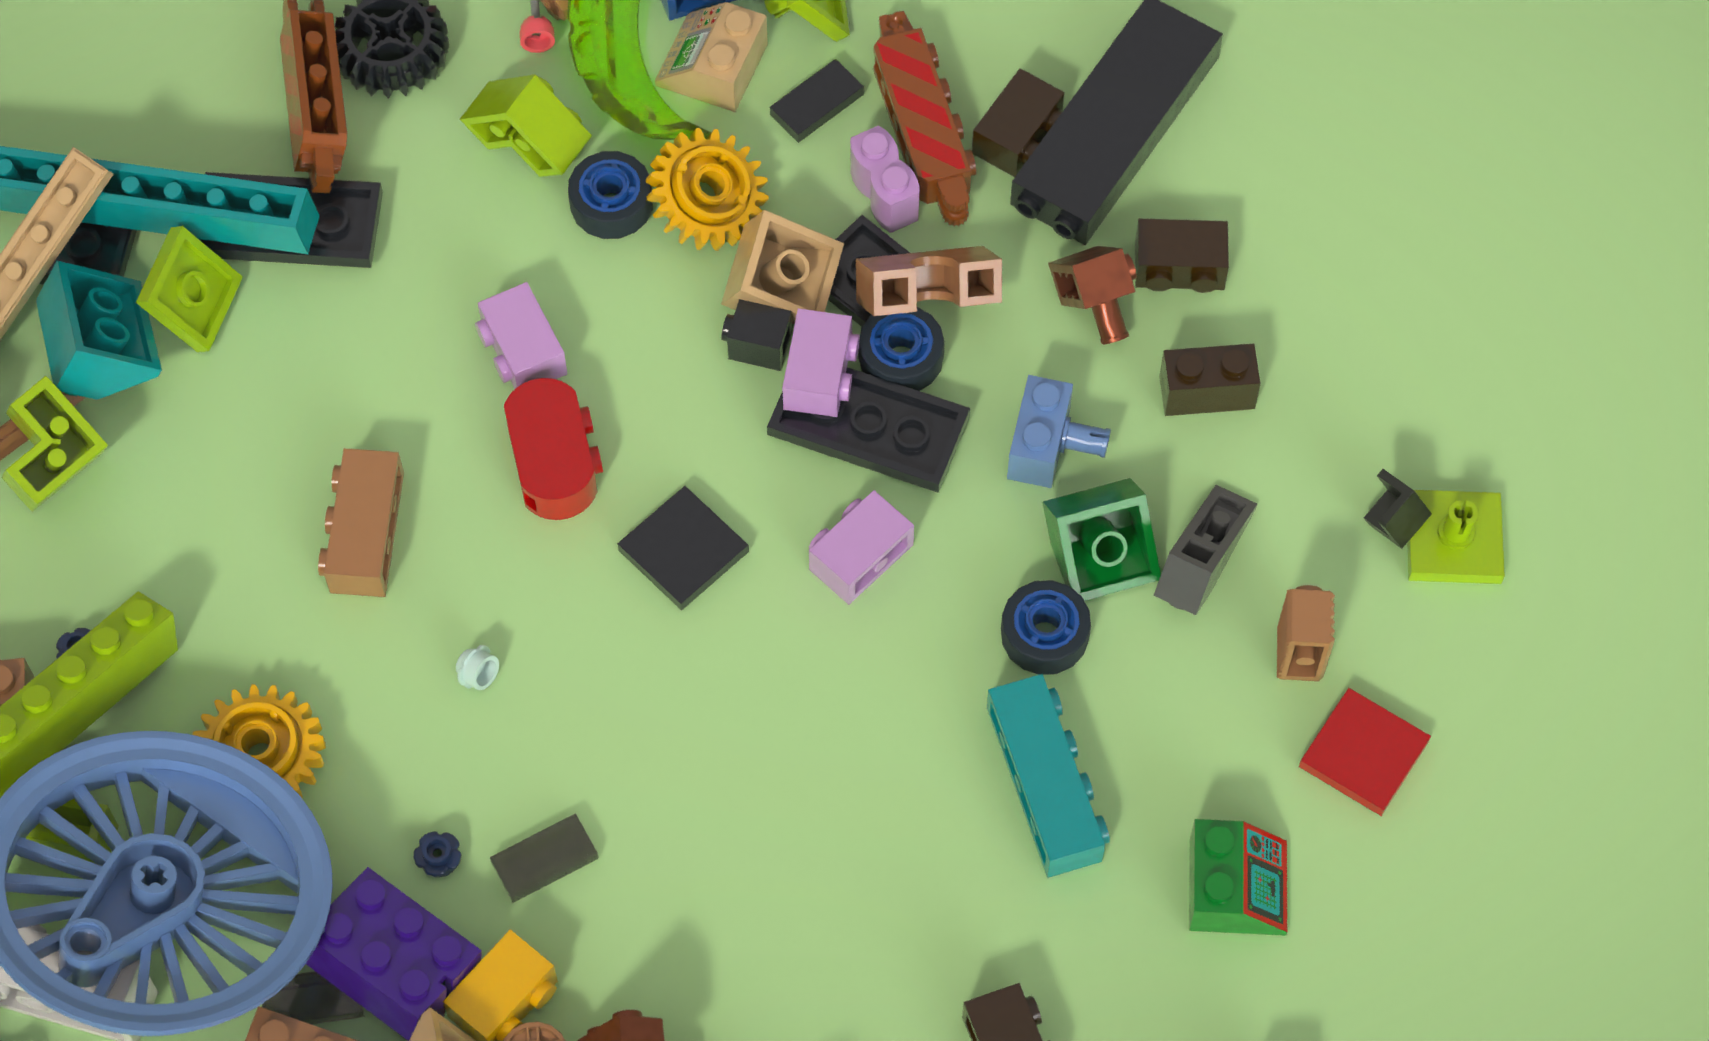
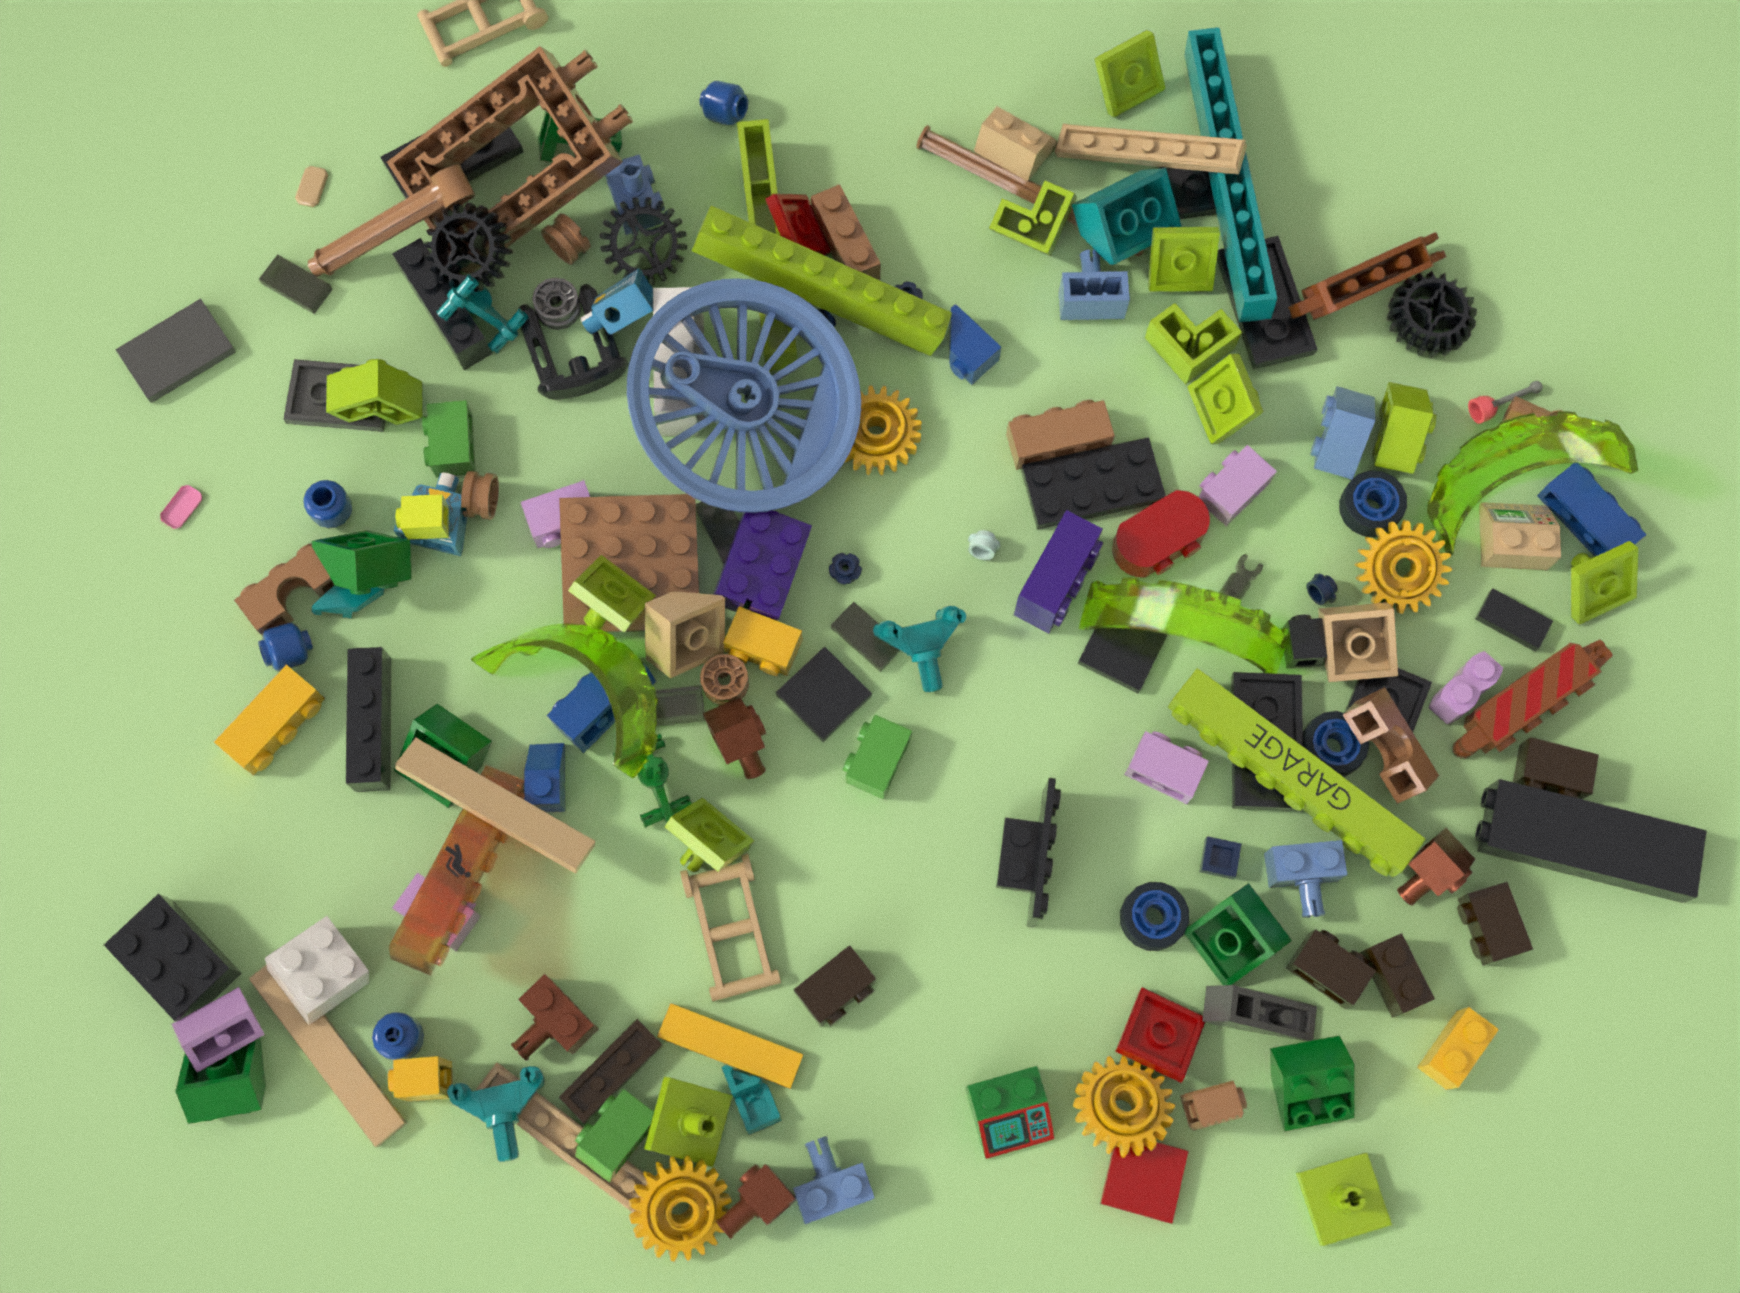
camera: 70 degrees right, 10 degrees up
(186, 414) = (1093, 292): none -> medium blue brick
(192, 590) = (970, 347): none -> blue slope
(311, 327) = (1190, 347): none -> lime brick
(404, 307) = (1225, 399): none -> lime tile
(445, 509) = (1093, 482): none -> black plate
(509, 185) = (1347, 424): none -> medium blue brick
(558, 581) = (1059, 572): none -> dark purple piece
(583, 780) = (923, 642): none -> teal axle
(603, 938) = (823, 694): none -> black tile
(653, 386) = (1239, 582): none -> clear smoke bar
(671, 453) = (1187, 613): none -> clear neon green windscreen
(697, 292) = (1322, 589): none -> dark blue plate
(717, 892) = (877, 756): none -> bright green brick
(818, 363) = (1292, 689): lavender brick -> none
(915, 743) = (1024, 854): none -> black bracket
(922, 400) = (1295, 774): none -> lime brick
(997, 525) = (1220, 857): none -> dark blue plate
(1046, 775) = (1041, 950): teal brick -> none
(1177, 449) = (1331, 968): none -> dark brown brick
(1197, 669) = (1161, 1035): none -> red tile
(1250, 762) = (1114, 1125): none -> yellow gear
(1308, 517) = (1313, 1082): none -> green slope
(1316, 346) = (1458, 1048): none -> yellow brick
(1398, 511) = (1341, 1148): pearl dark grey panel -> none

